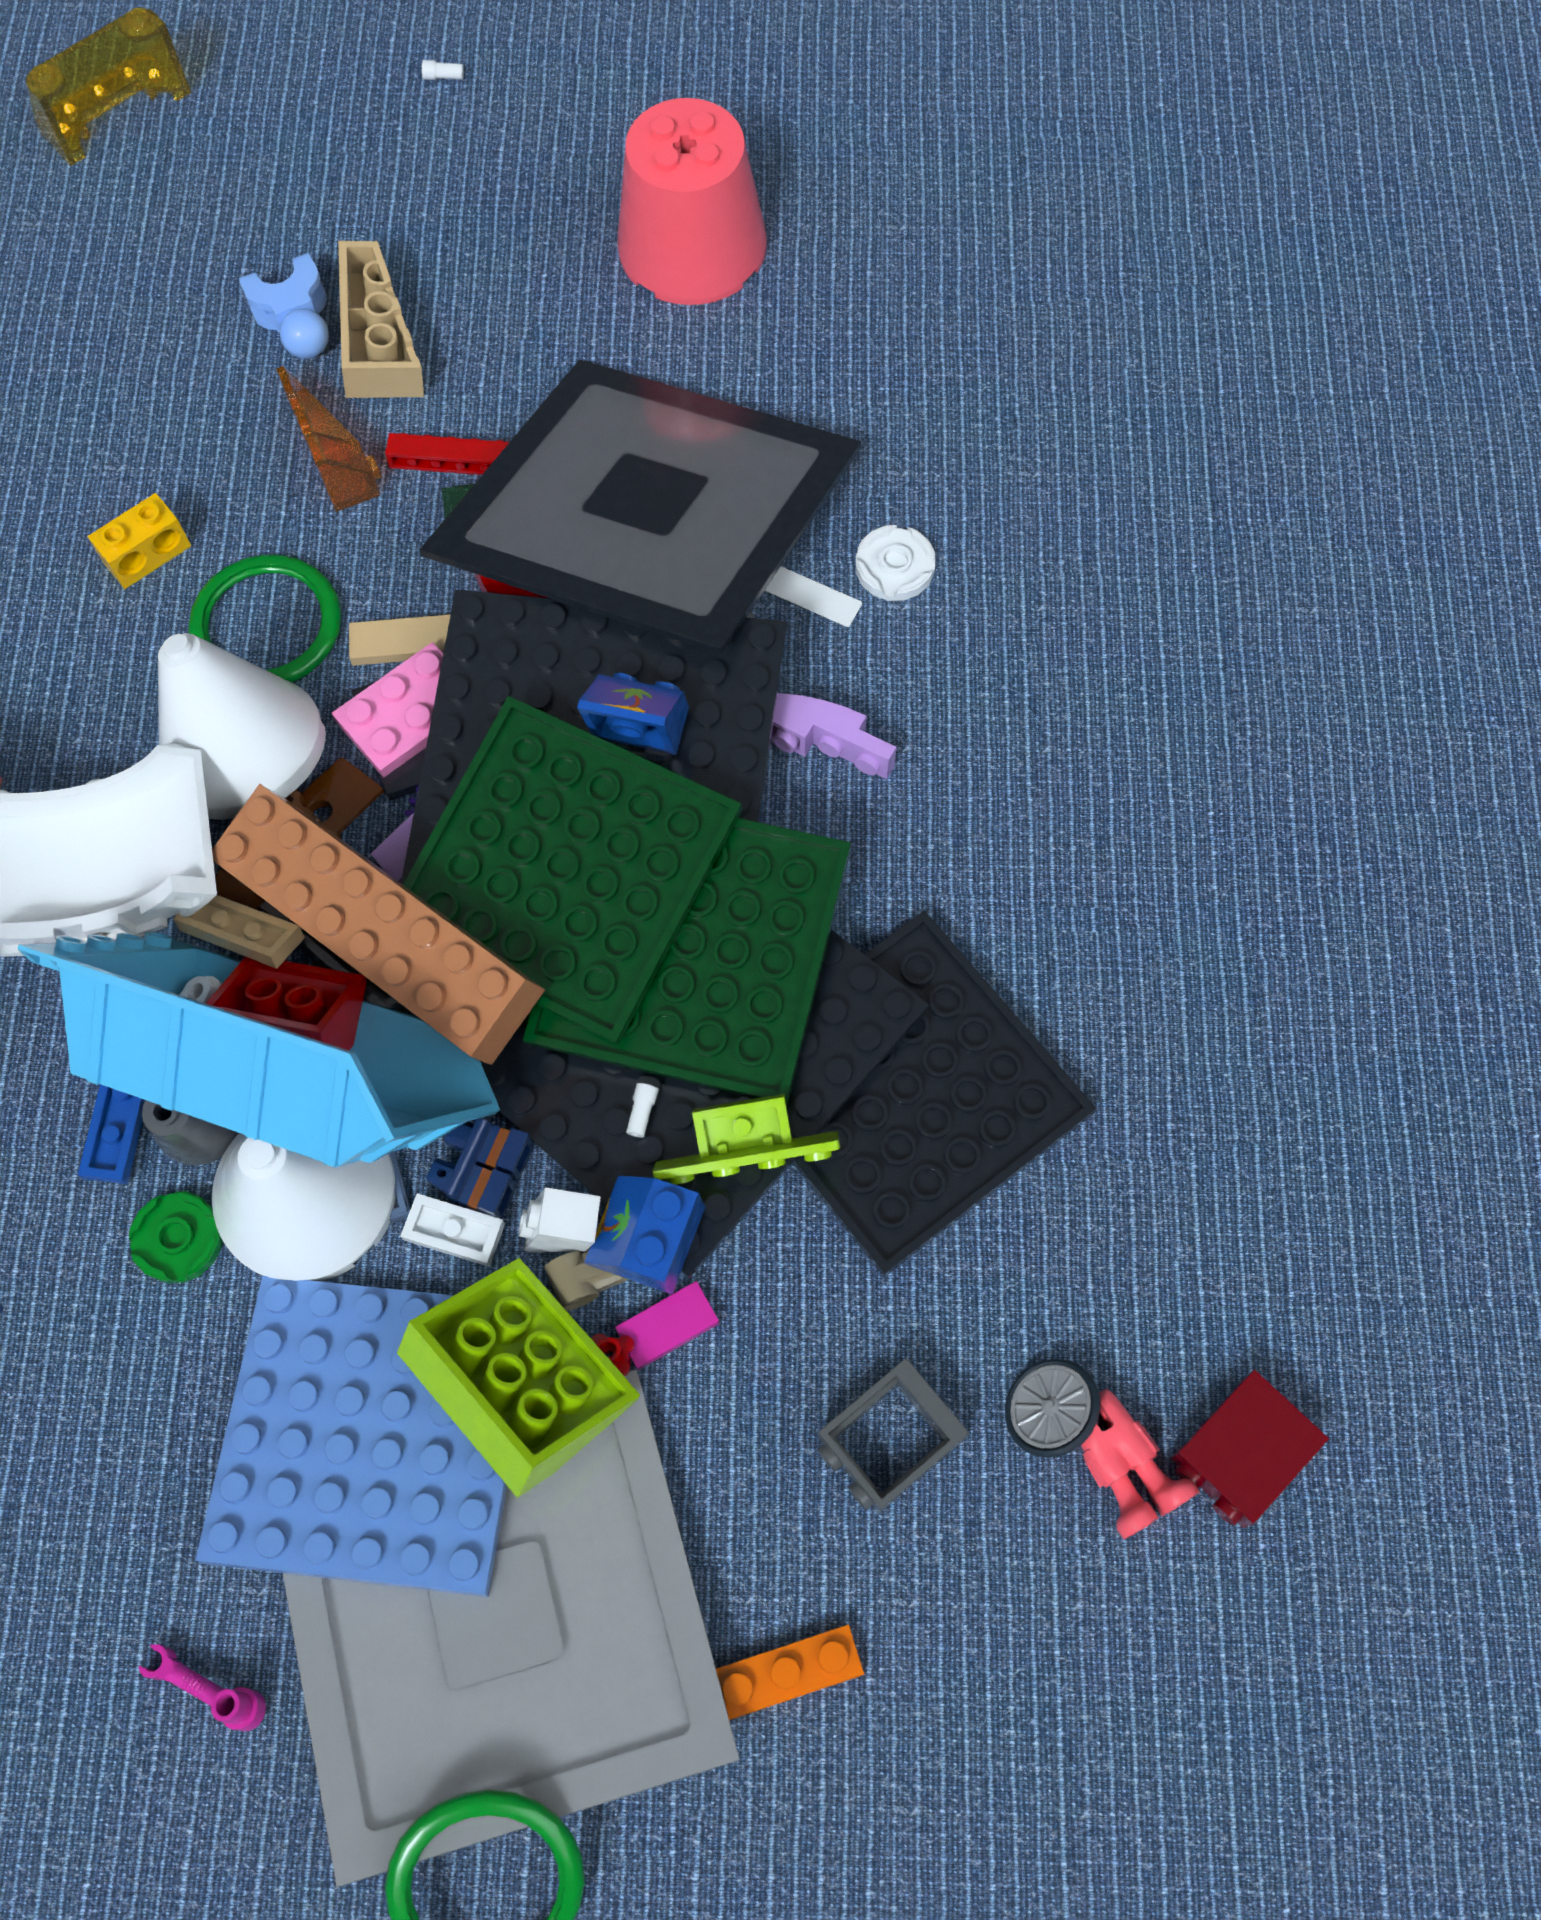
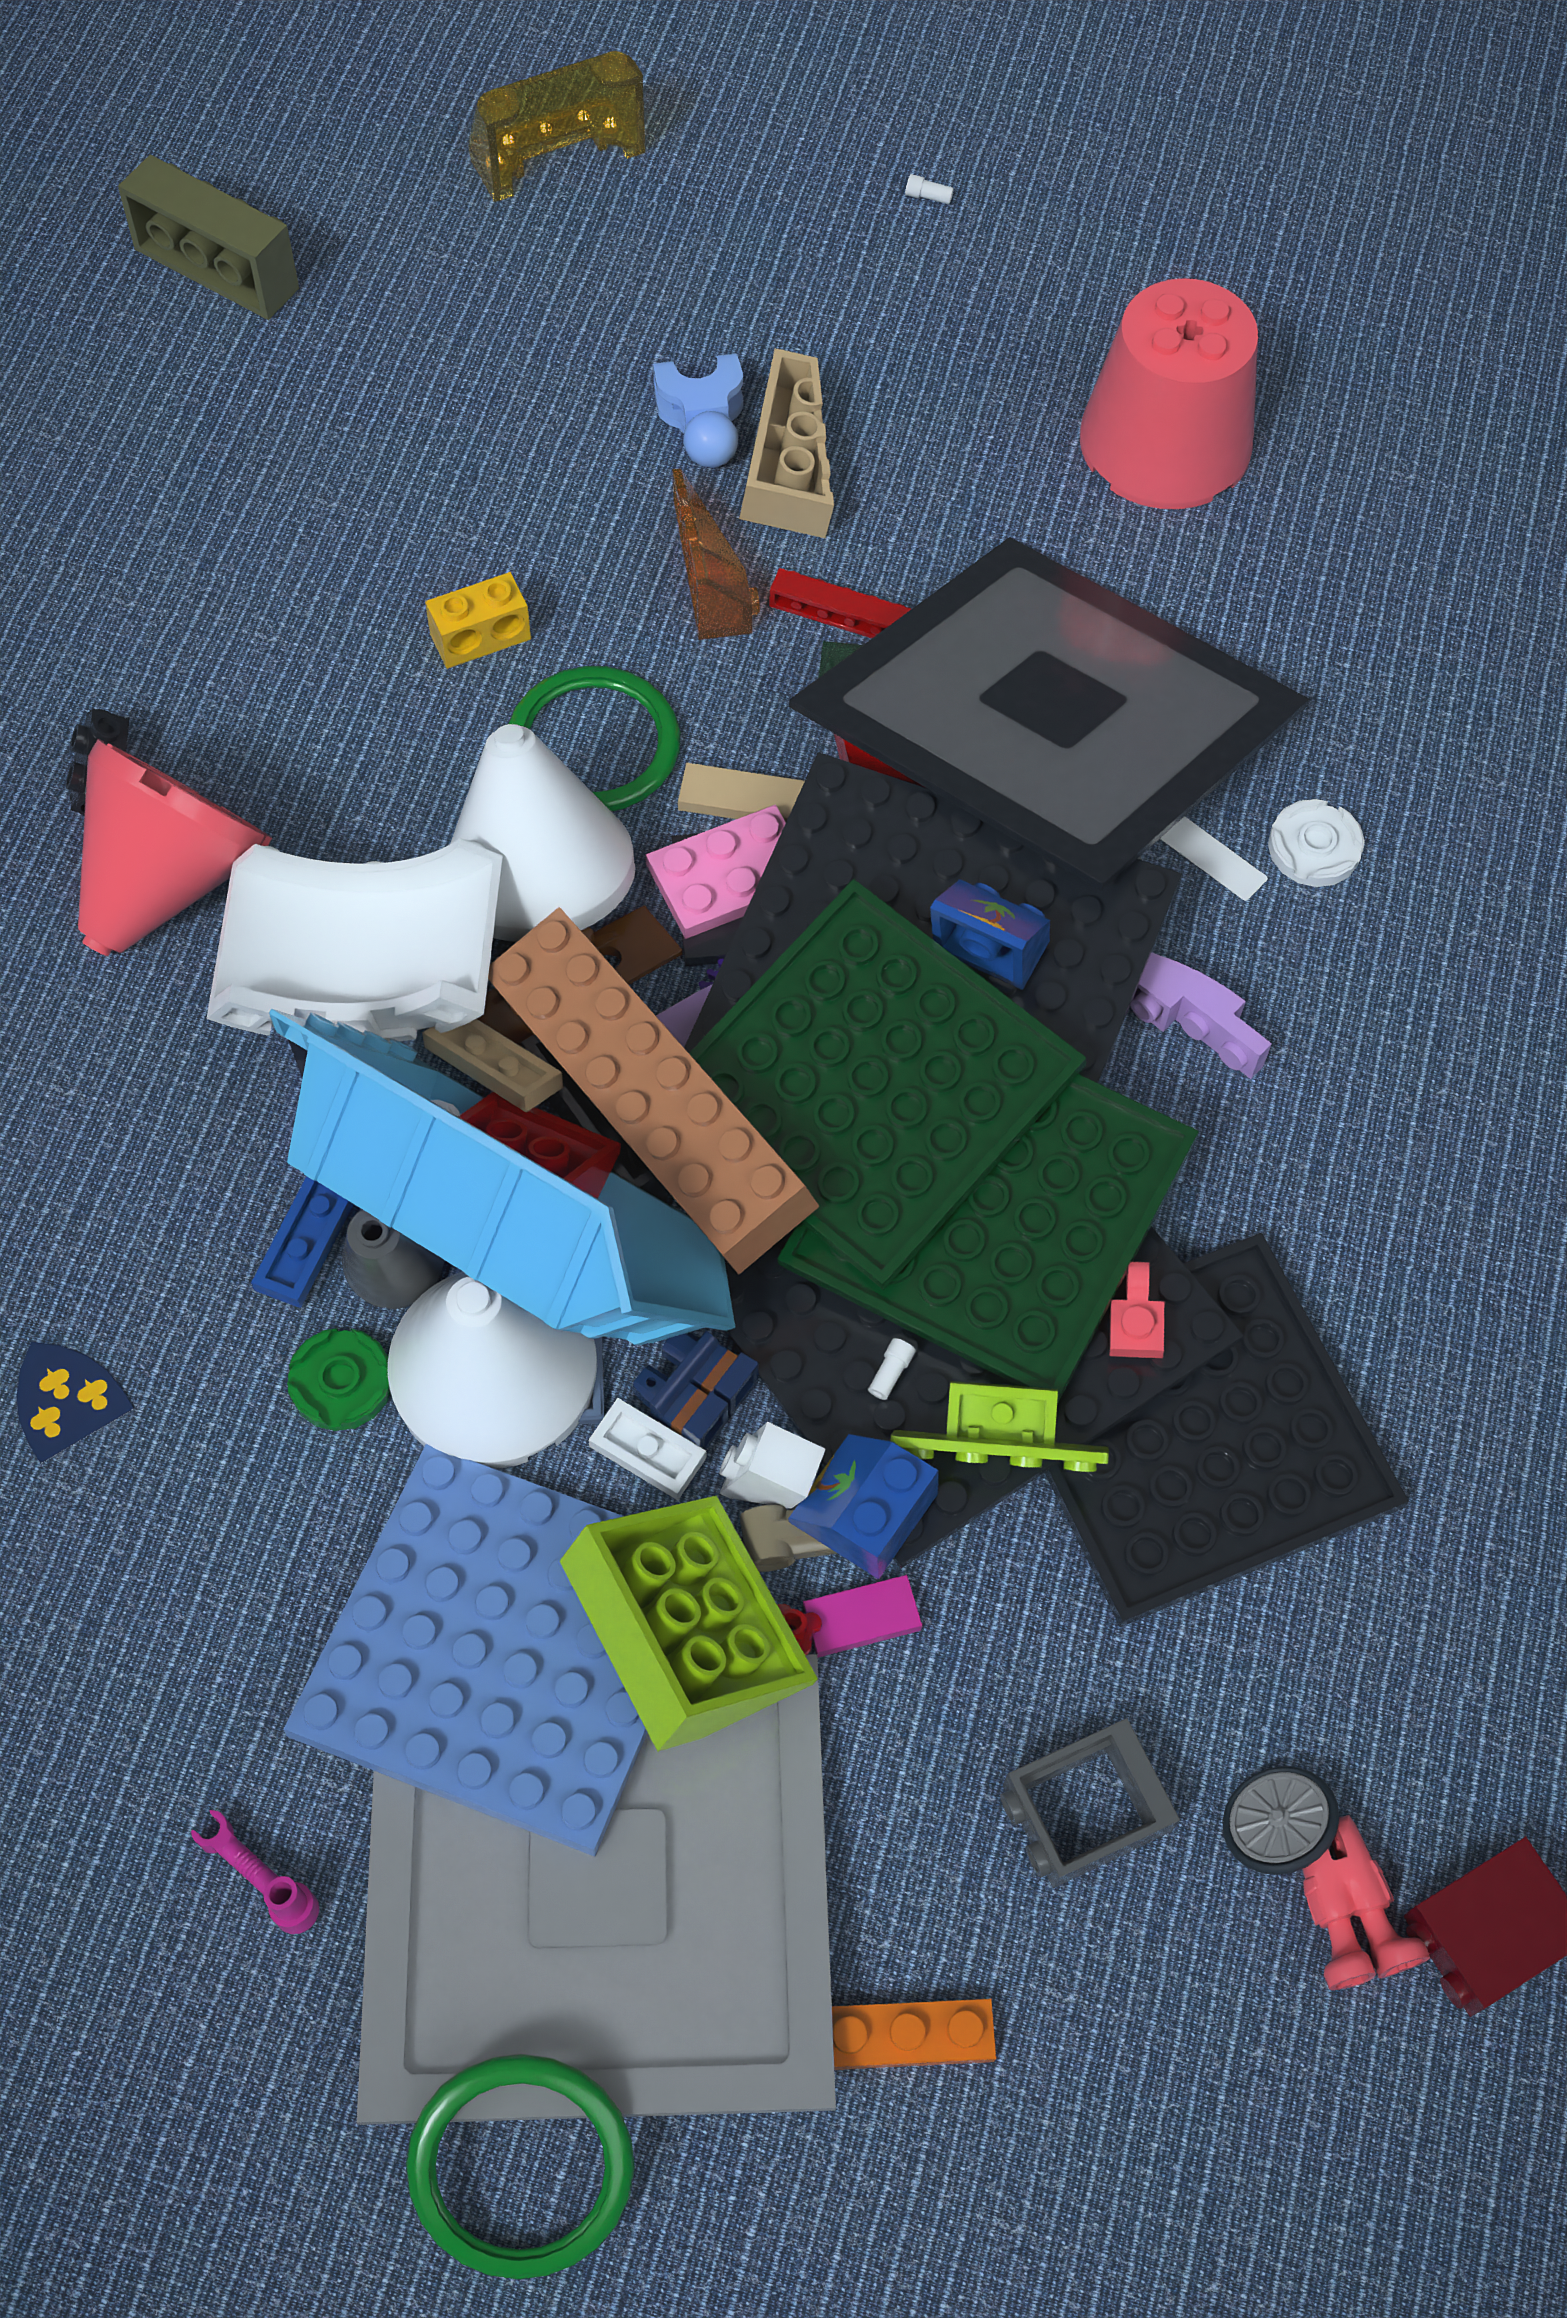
camera: 10 degrees right, 5 degrees down
(837, 1017) = (1136, 1322): none -> coral plate

